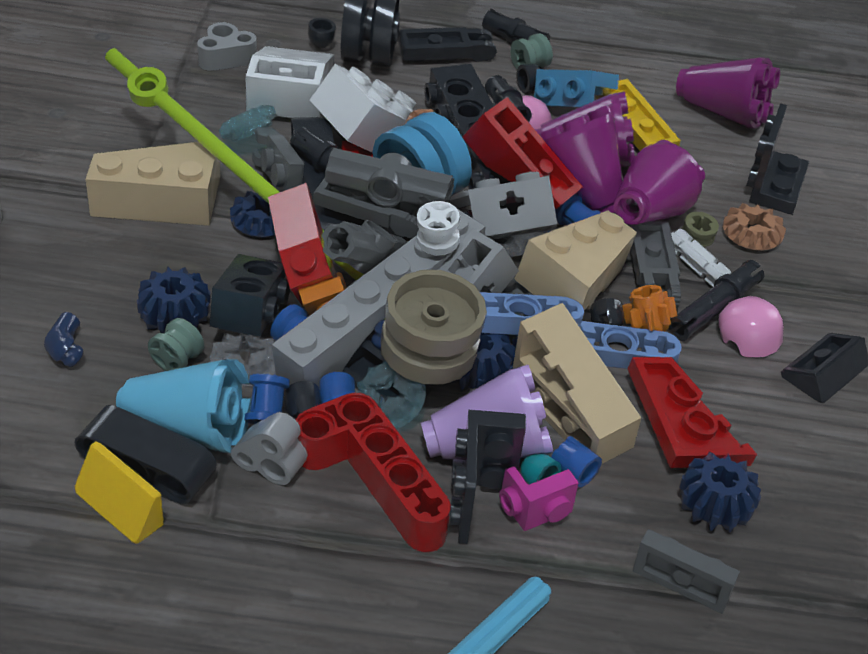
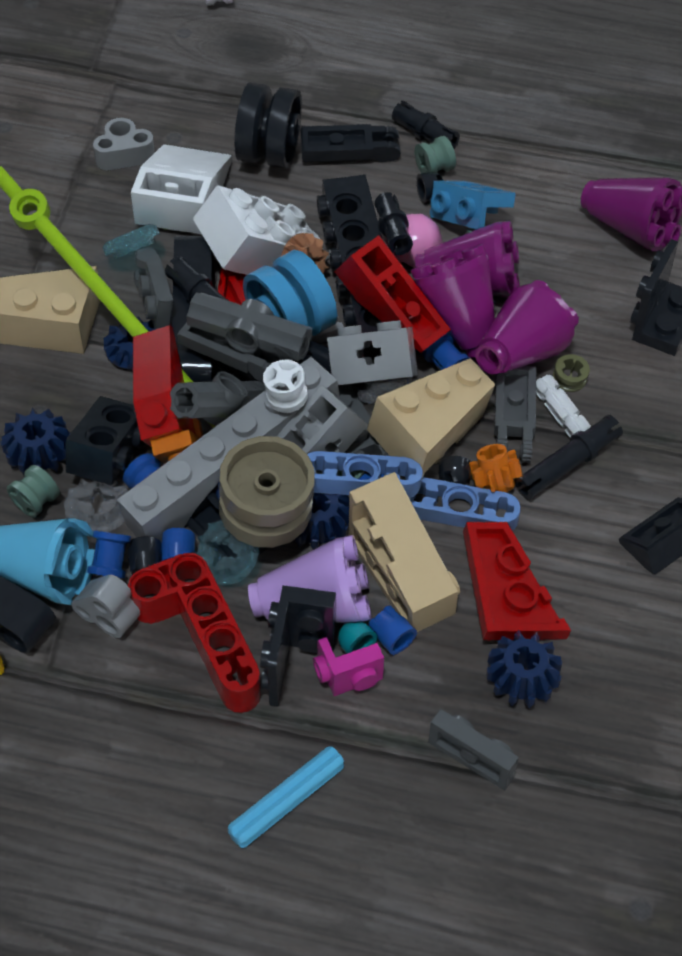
camera: 10 degrees right, 10 degrees up
(321, 32) = (221, 127): black hinge -> none
(646, 123) = (535, 242): yellow plate -> none
(752, 326) = (598, 488): bright pink hair -> none
(763, 236) = (628, 384): nougat gear -> none

